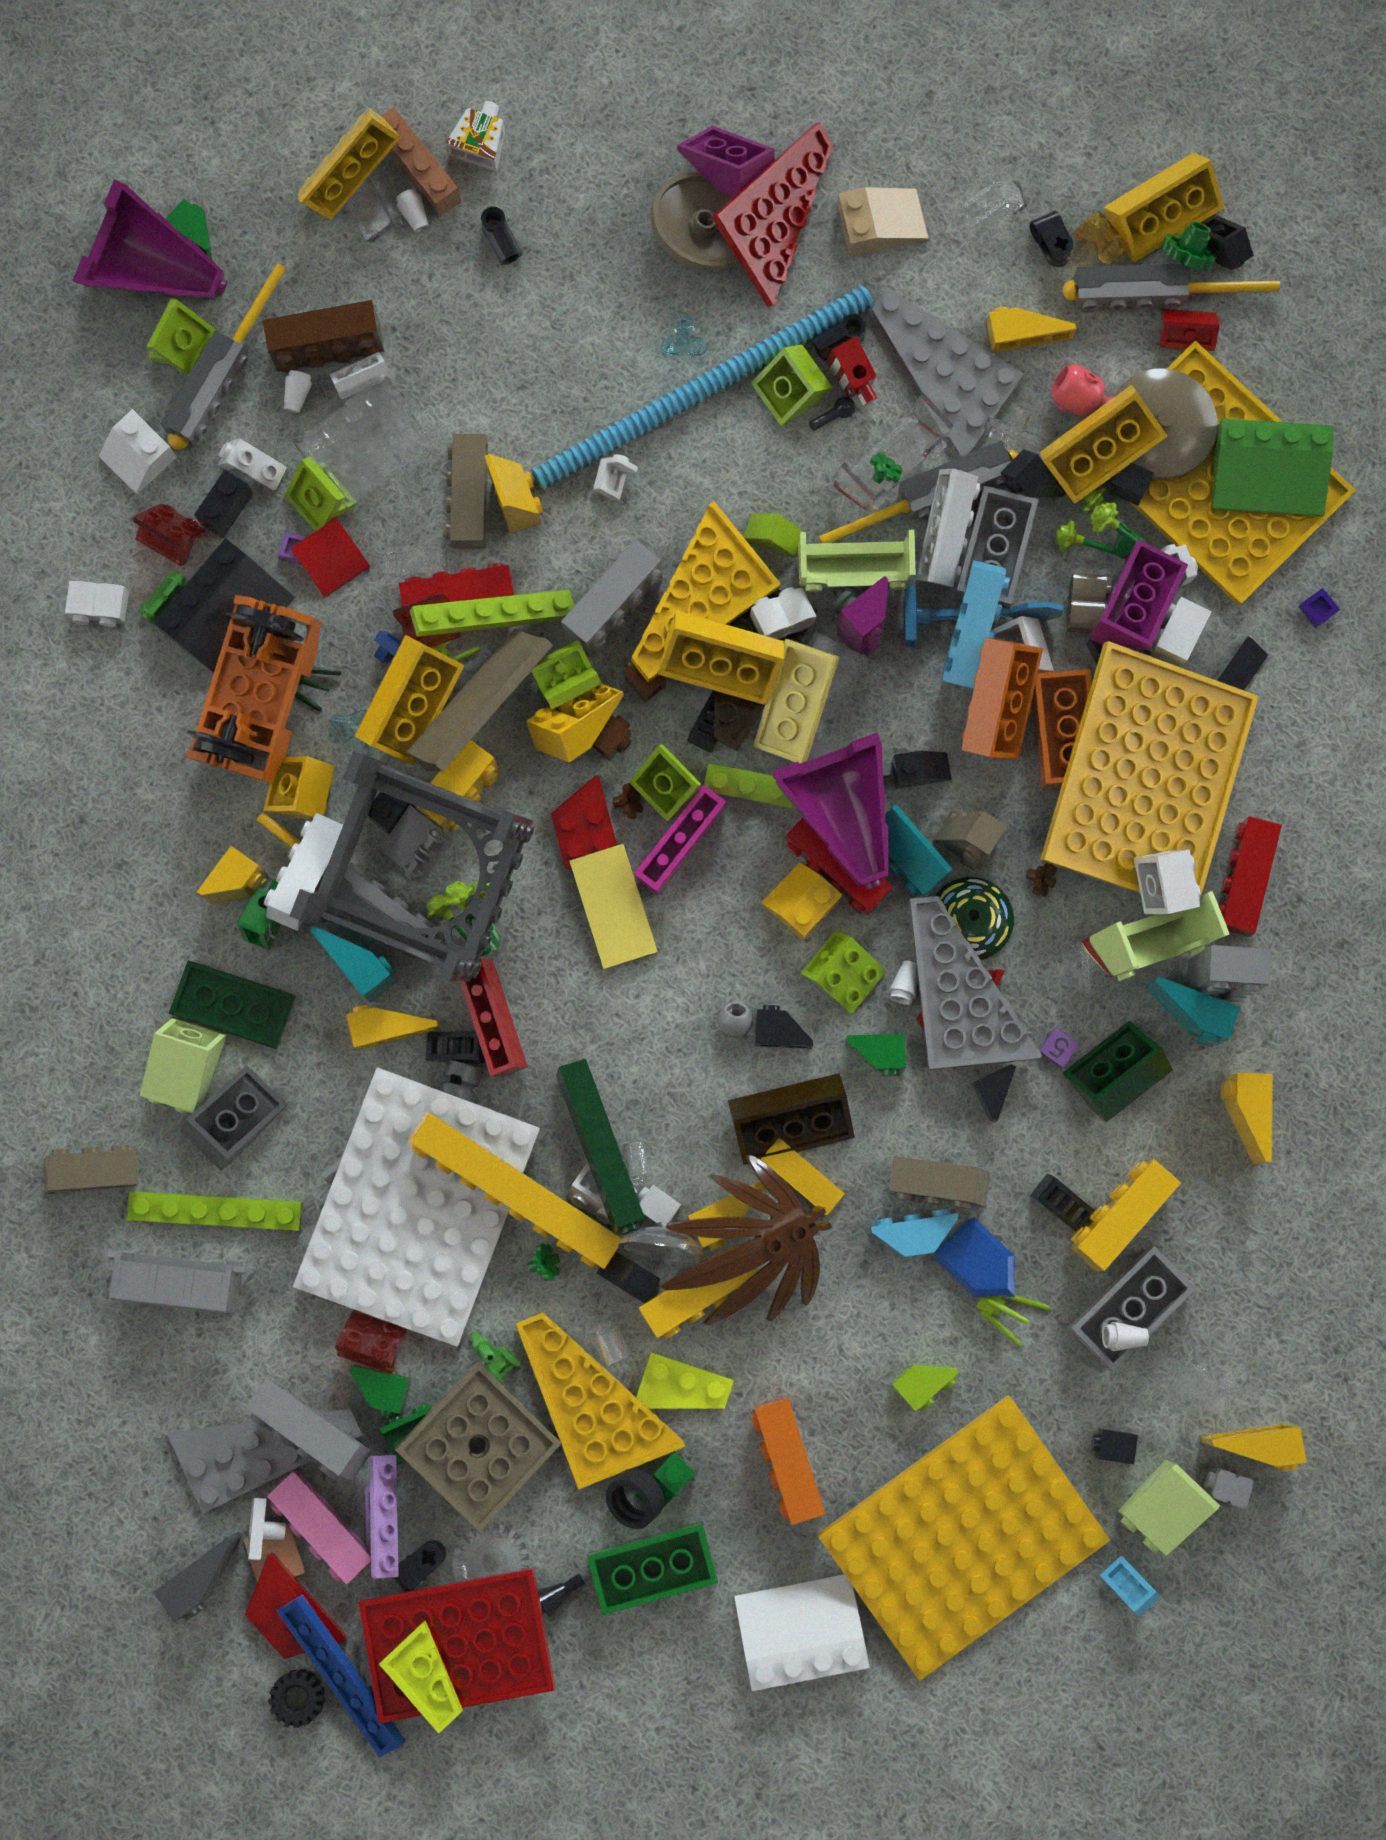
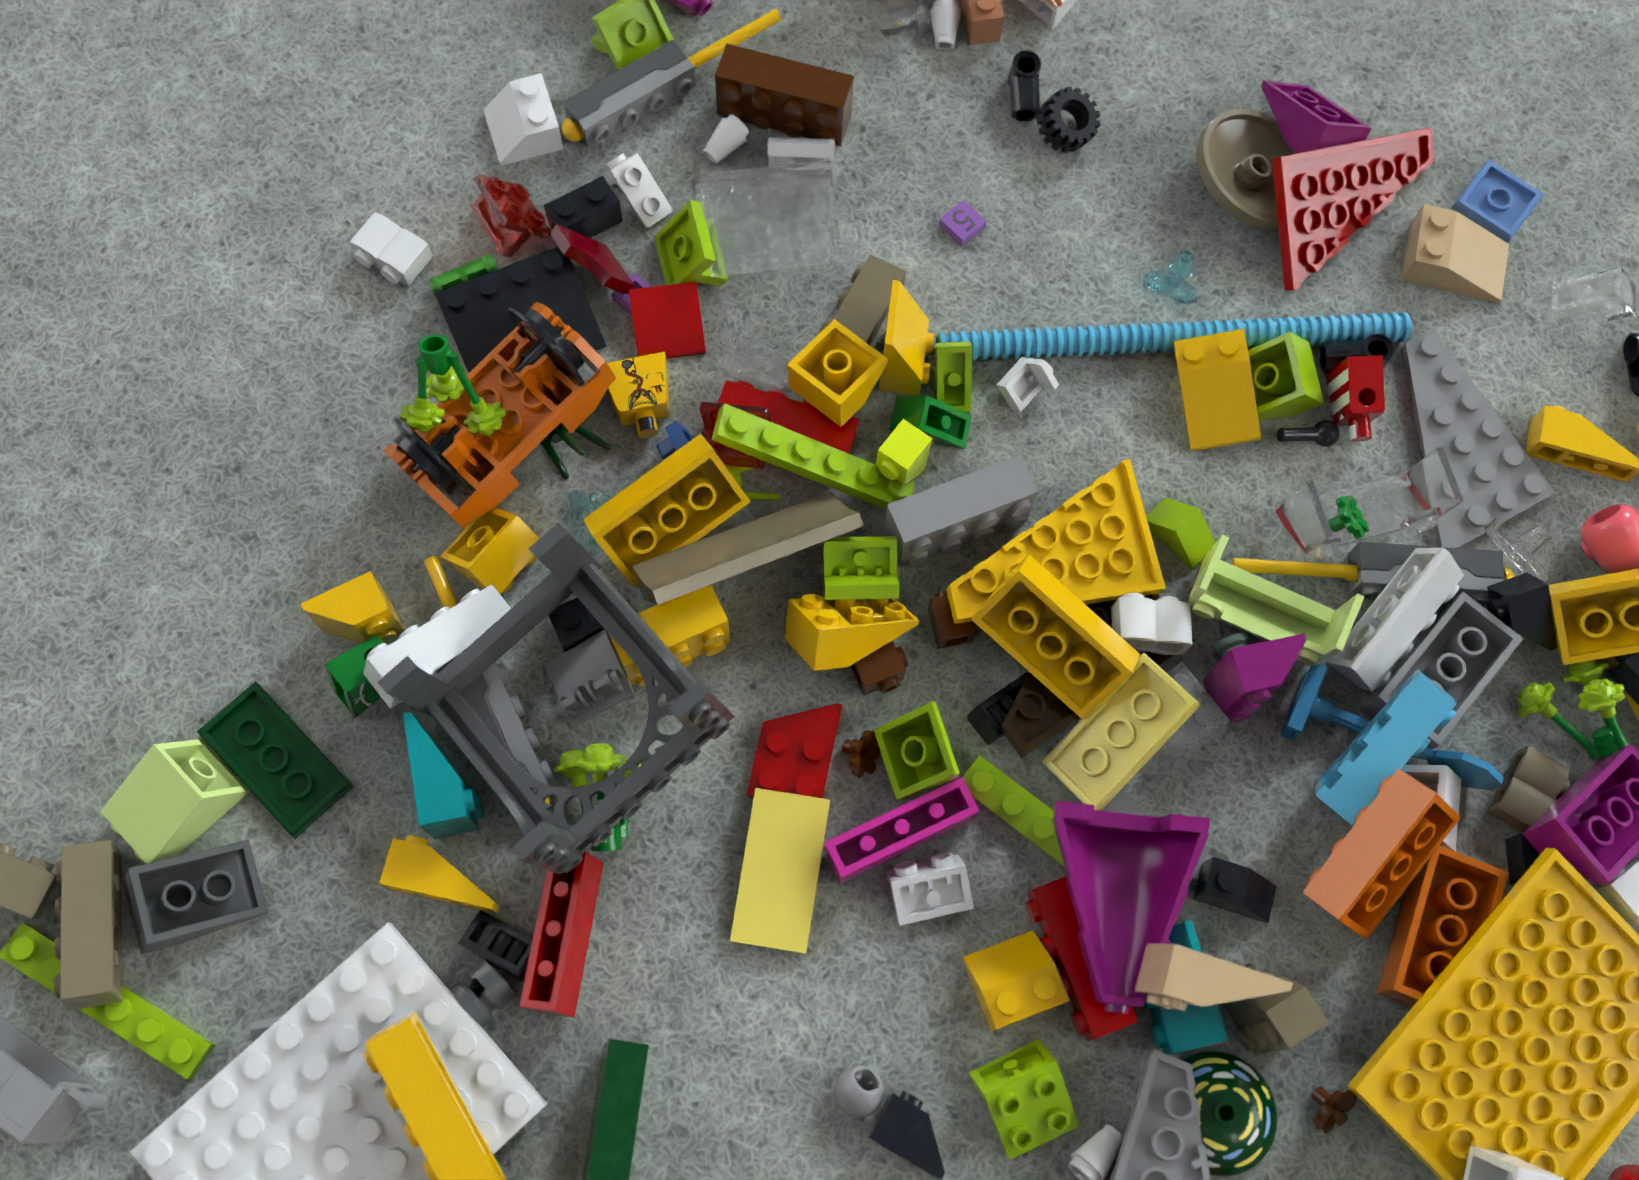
camera: 20 degrees right, 10 degrees down
(178, 1167) = (89, 925): none -> dark tan brick
(205, 685) = (446, 384): none -> lime plant
(252, 536) = (594, 257): none -> dark red tile
(341, 621) = (640, 392): none -> yellow torso
(476, 540) = (836, 372): none -> yellow slope
(506, 370) = (962, 223): none -> medium lavender tile
(553, 576) = (904, 453): none -> neon yellow slope
(555, 238) = (1081, 110): none -> black tyre
(559, 498) = (953, 374): none -> lime slope
(559, 540) = (936, 419): none -> green slope
(718, 868) = (929, 888): none -> white bracket
(752, 415) = (1217, 390): none -> yellow slope
(893, 156) = (1497, 201): none -> medium blue tile
(904, 842) = (1184, 977): none -> tan slope

